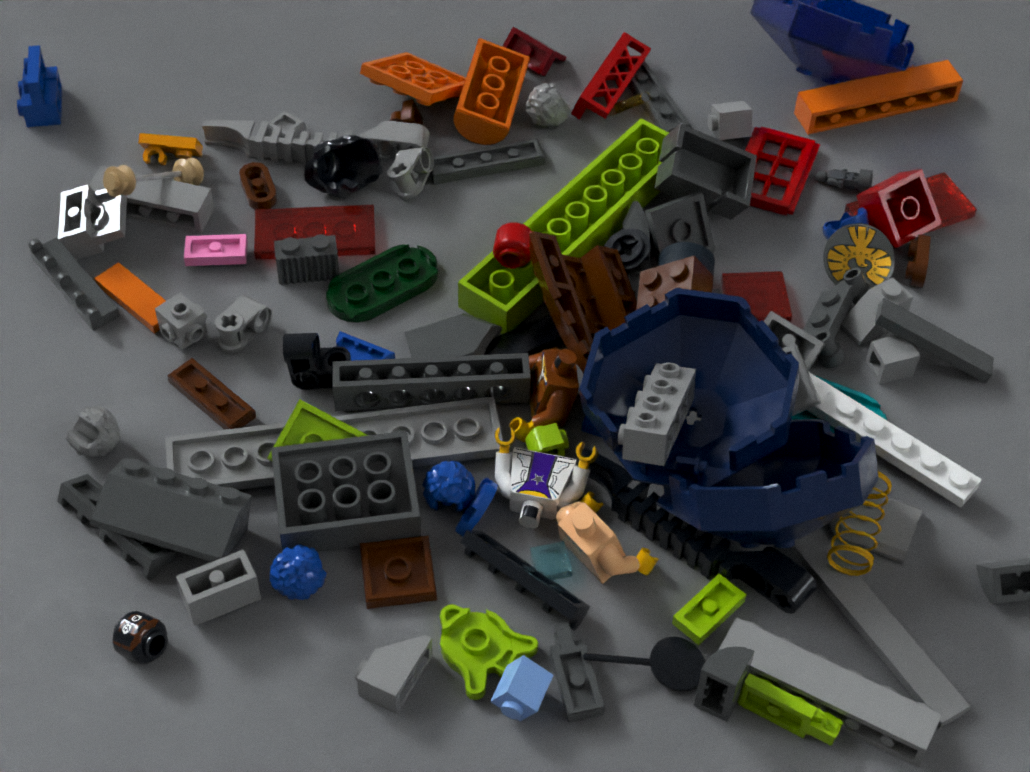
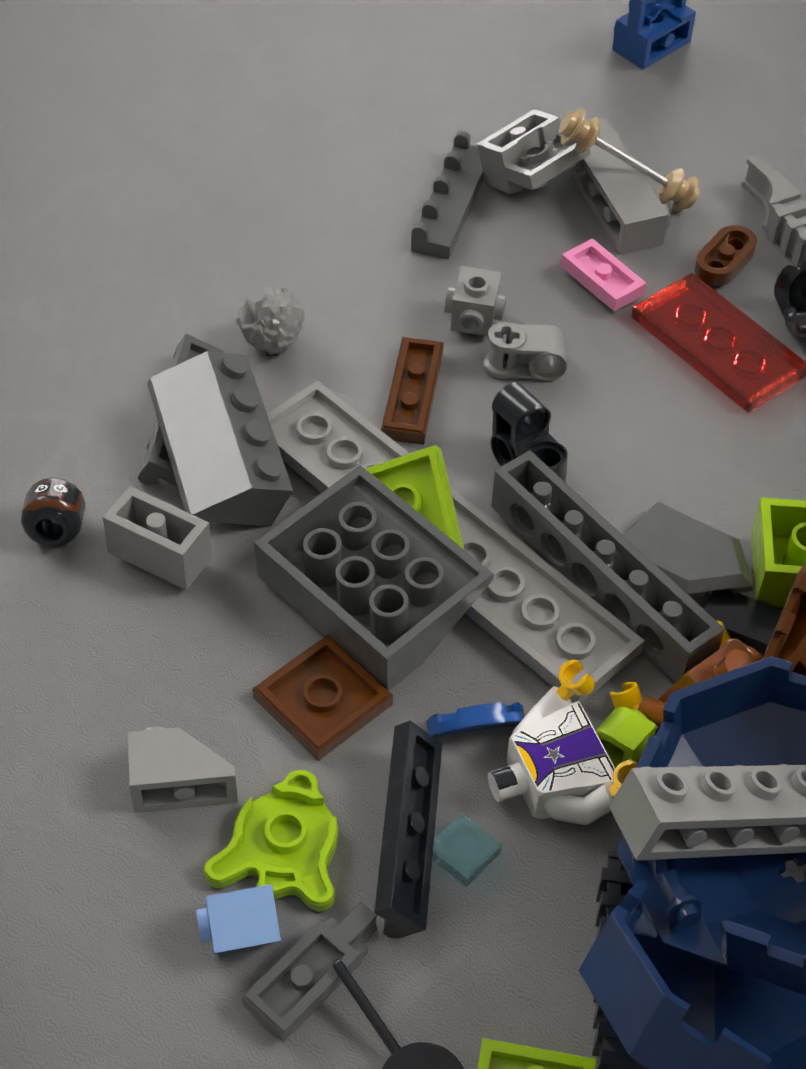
camera: 55 degrees right, 0 degrees up
(131, 294) = (482, 240): orange tile -> none
(159, 144) = (689, 146): light orange plate -> none
(297, 572) = (234, 595): blue piece -> none
(306, 259) = (666, 353): dark grey brick -> none
(362, 349) = (592, 480): blue tile -> none
(381, 283) = (713, 442): dark green tile -> none
(449, 484) = (473, 671): blue piece -> none
(596, 543) = (514, 874): light nougat torso -> none

